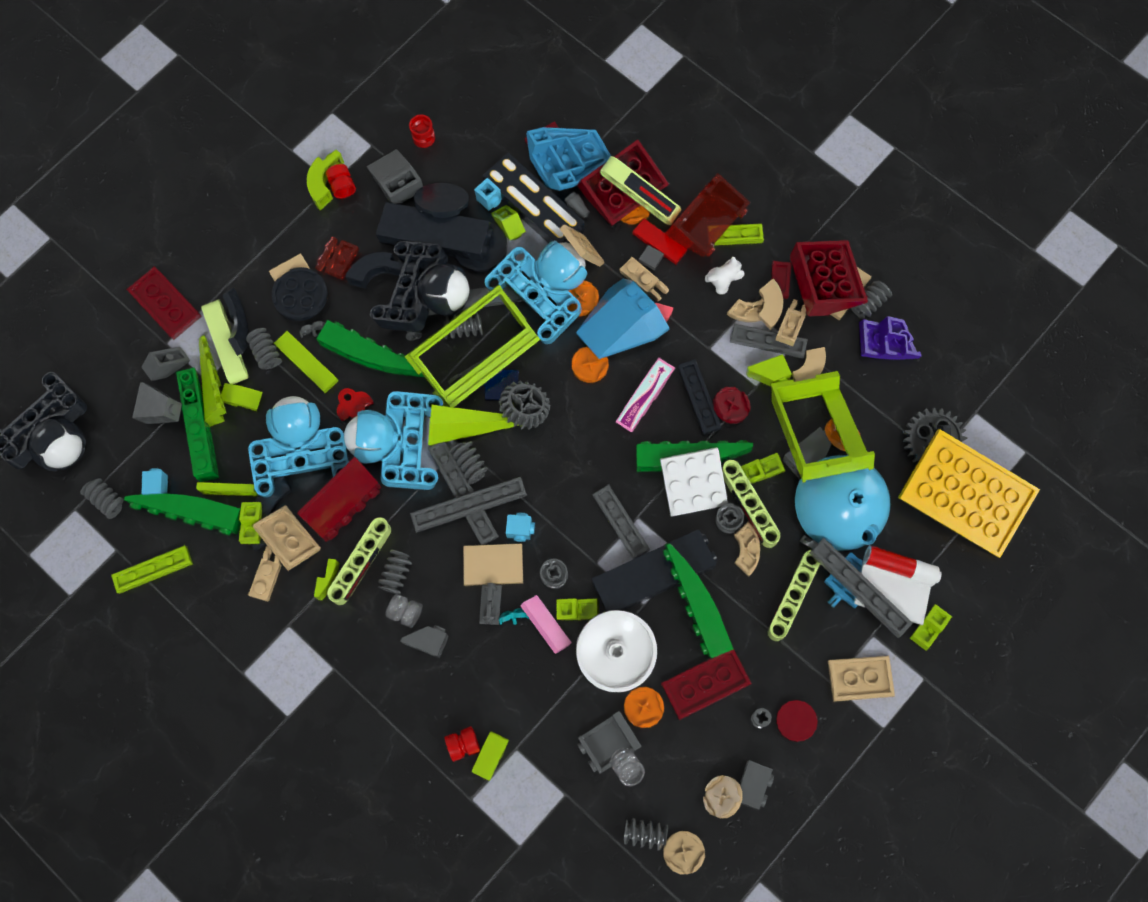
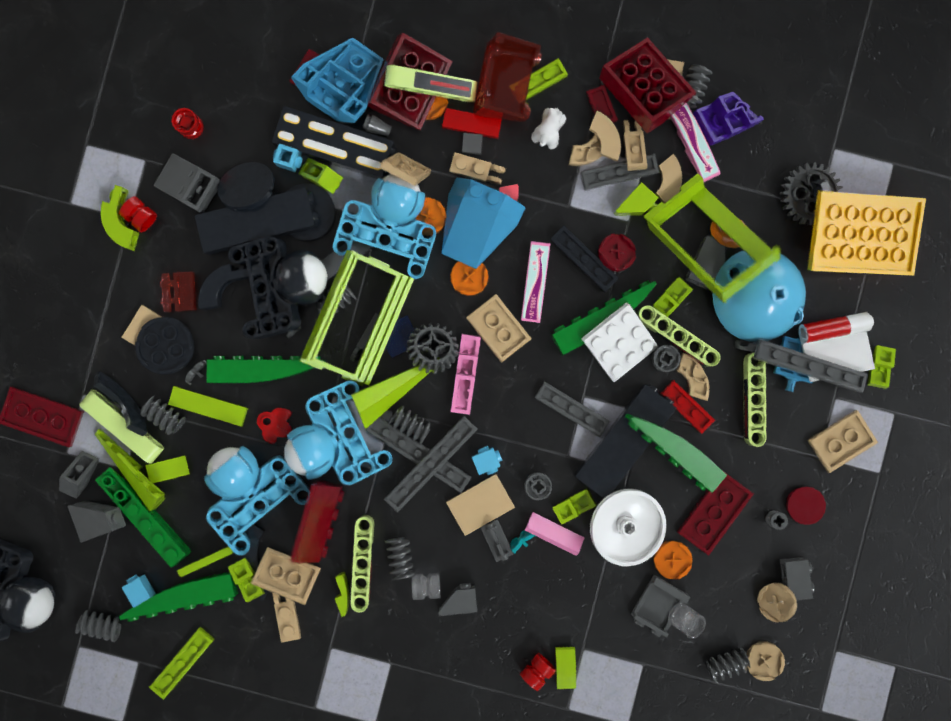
camera: 30 degrees left, 15 degrees up
(542, 443) = (465, 374): none -> bright pink slope
(592, 419) = (498, 328): none -> tan tile
(729, 573) = (688, 407): none -> red tile
(848, 346) = (695, 143): none -> slope

